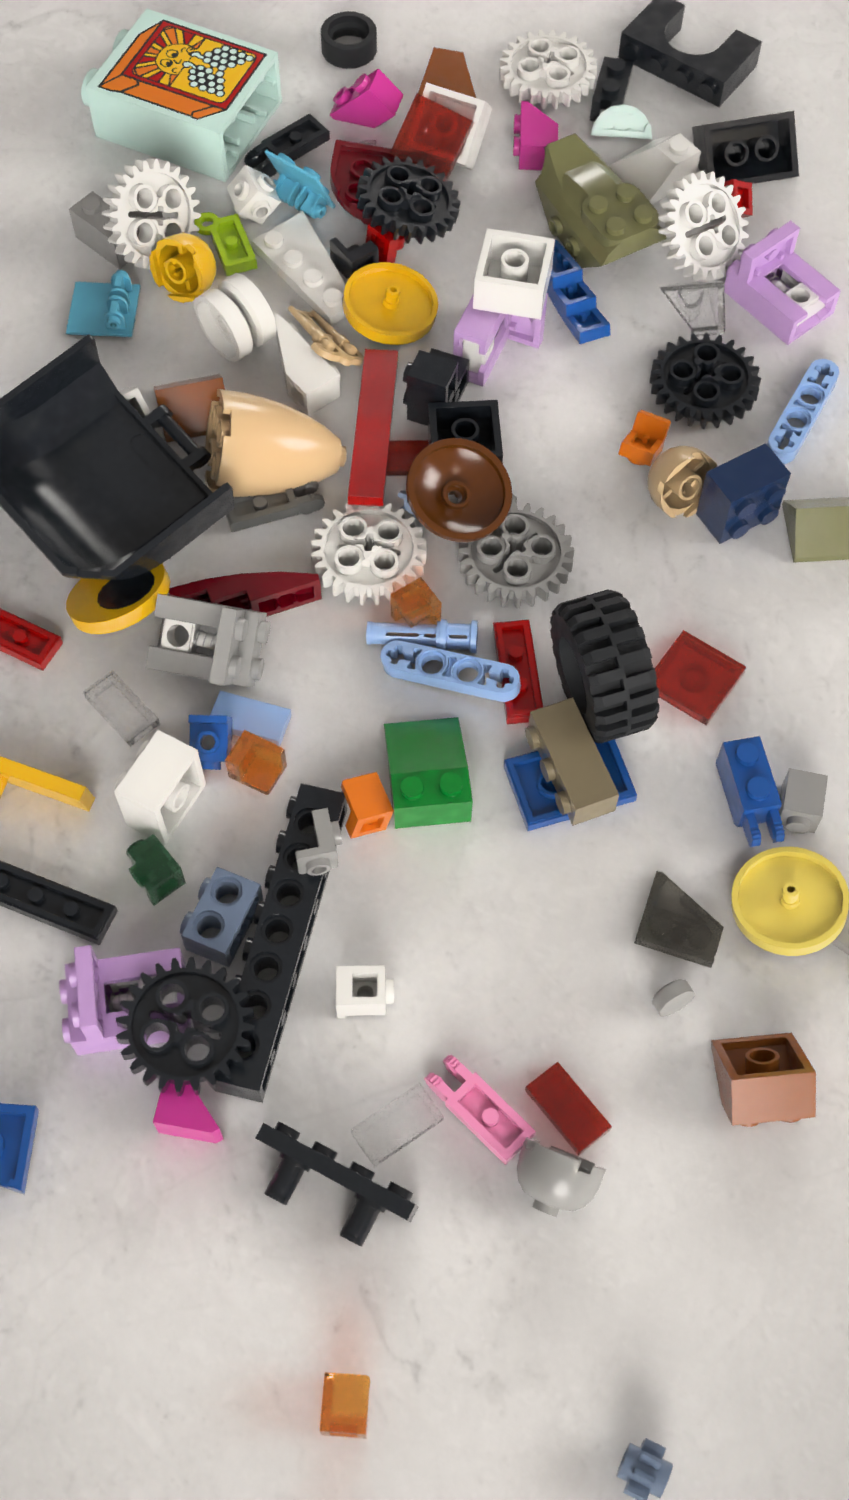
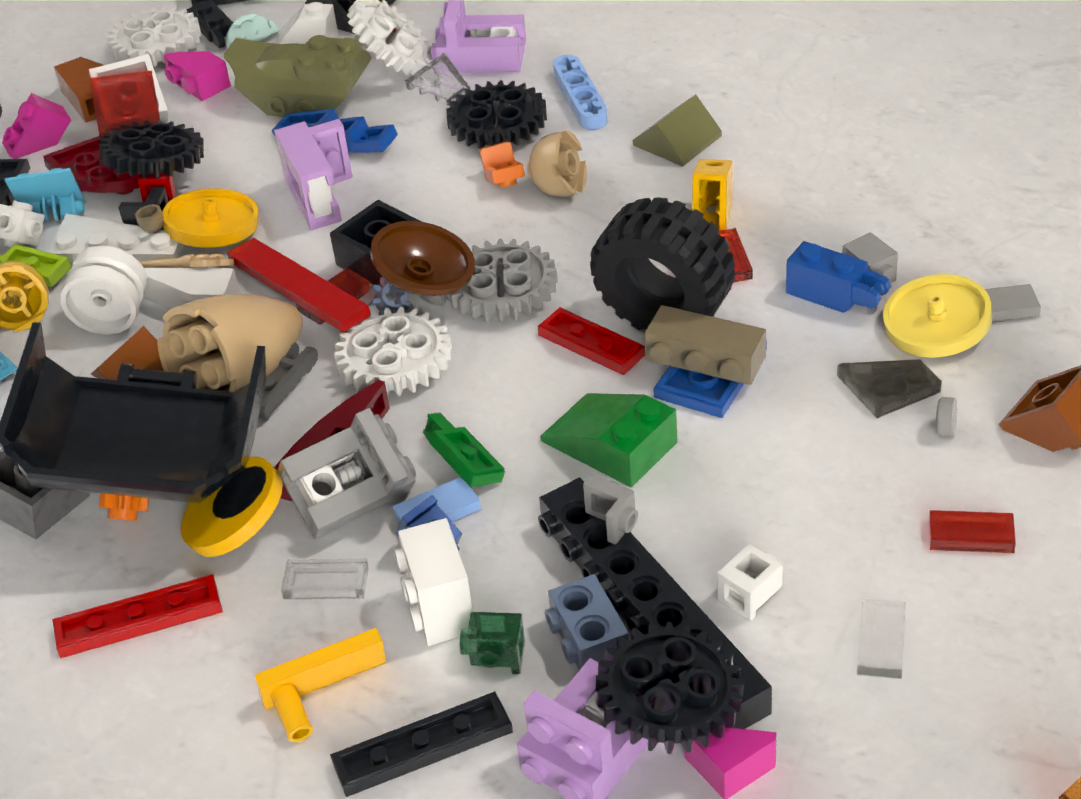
camera: 40 degrees left, 20 degrees down
(256, 762) = (481, 522): clear orange panel -> none
(312, 689) = (462, 452): none -> green hinge
(339, 269) = (150, 218): none -> dark tan hinge
(357, 1178) = (901, 687): black plate -> none
(368, 805) = (601, 466): orange panel -> none
(378, 634) = (511, 357): light blue pin -> none
(415, 604) = (474, 345): clear orange panel -> none
(433, 379) = (309, 229): black brick -> none
(447, 677) = (544, 364): light blue beam -> none
(482, 1110) = (921, 576): bright pink hinge -> none
(513, 273) = (309, 112): white brick -> none
(556, 1178) = (1026, 558): light grey cylinder -> none
(743, 493) = (611, 142): dark blue brick -> none
(761, 618) = (713, 186): none -> yellow torso

